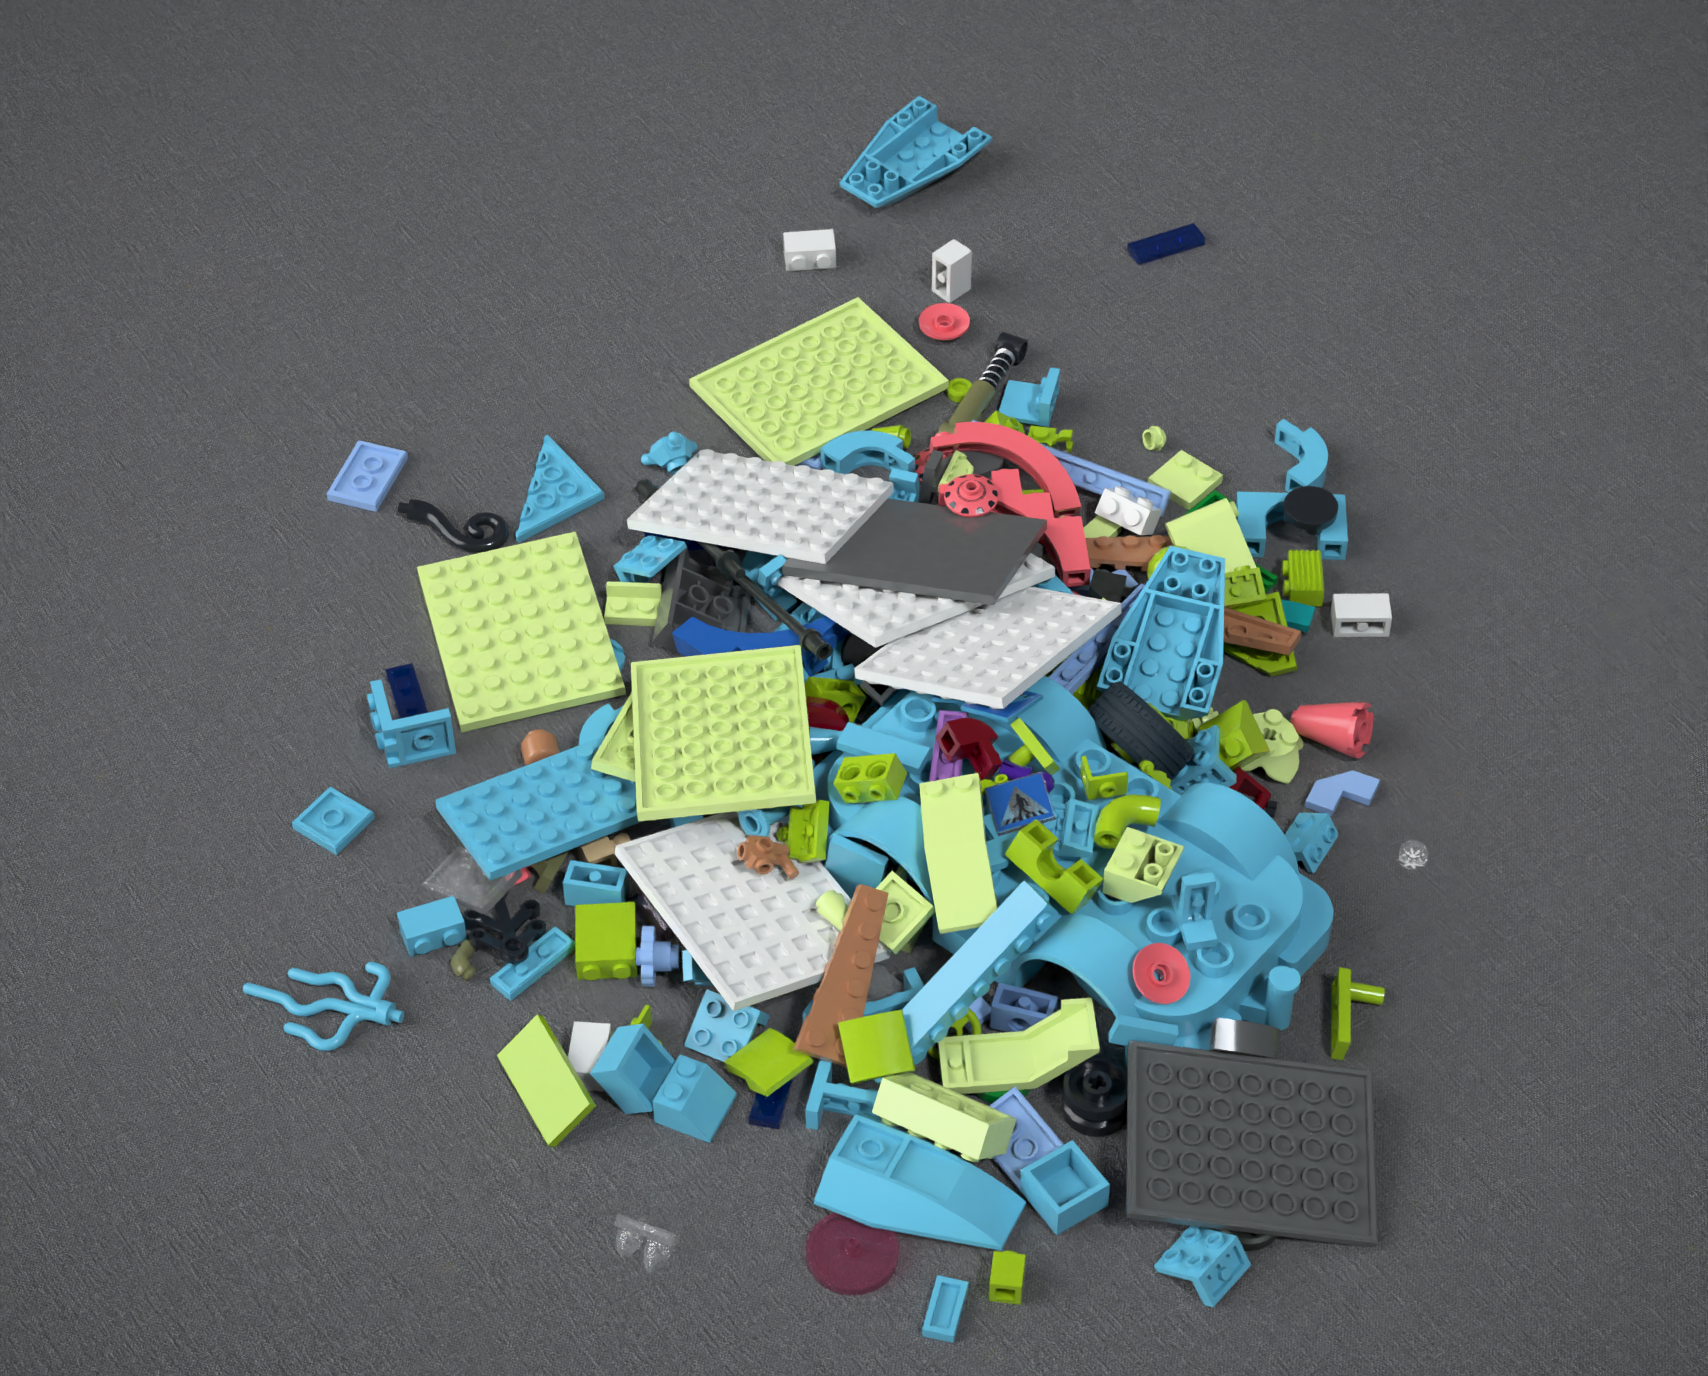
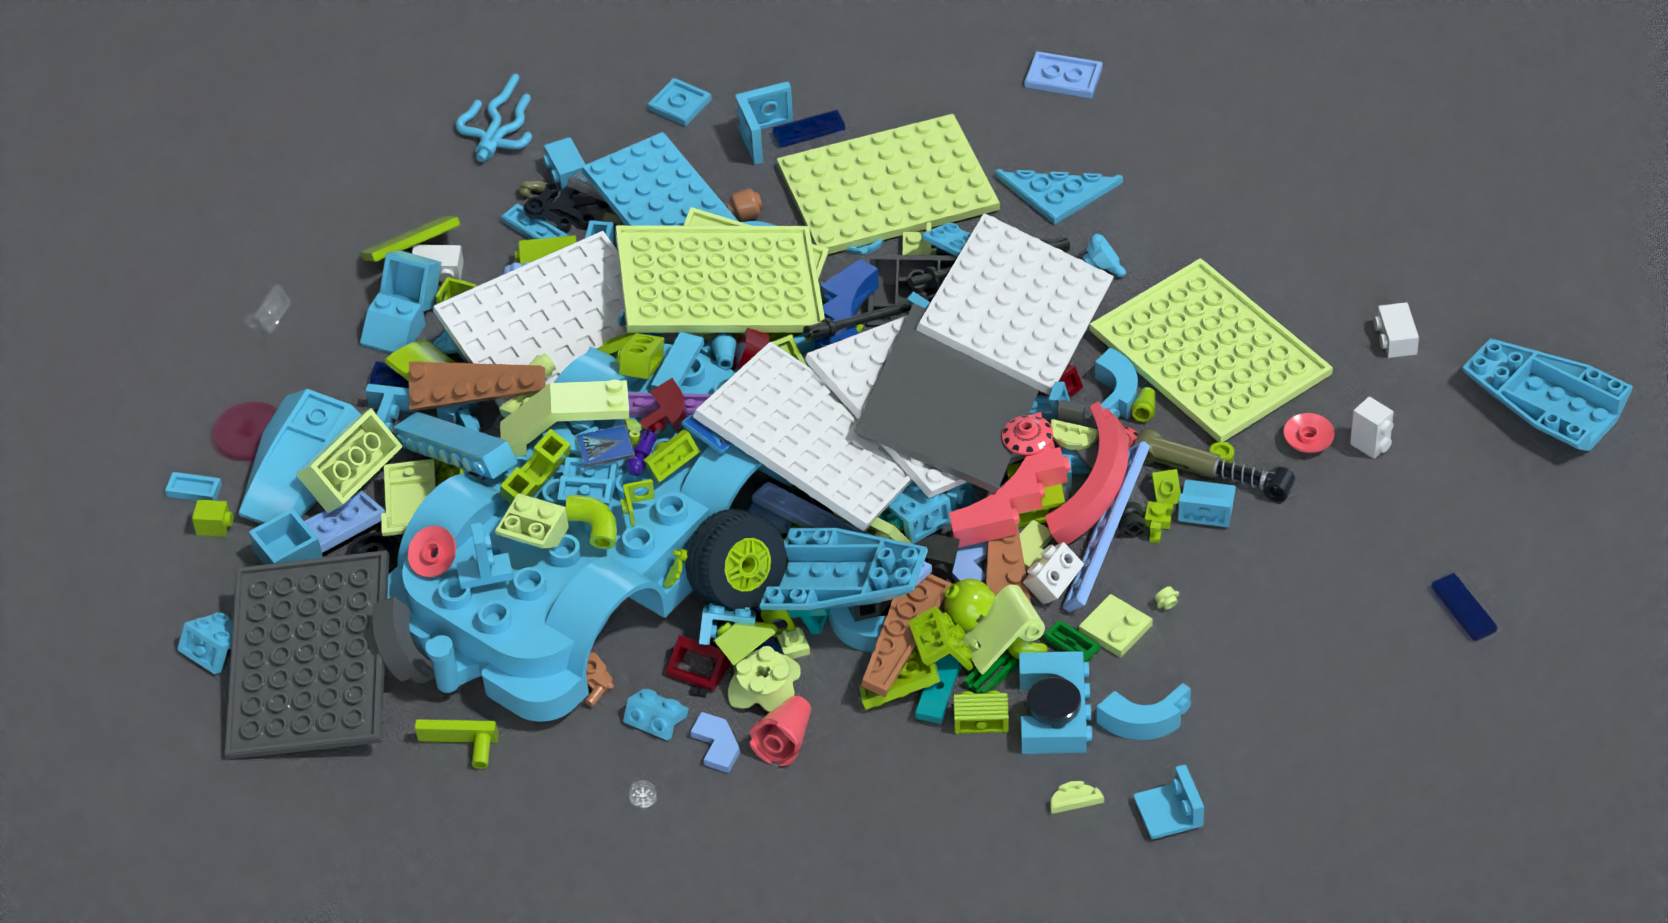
camera: 90 degrees right, 0 degrees up
(429, 514) = (1016, 114): black plant -> none
(762, 853) = (596, 320): nougat piece -> none
(876, 1046) = (410, 410): lime slope -> none
(1137, 1029) = (393, 559): medium azure tile -> none
(1361, 615) = (935, 755): white brick -> none
(1400, 522) = (1075, 795): none -> yellowish green tile
(1414, 446) = (1172, 806): none -> medium azure bracket

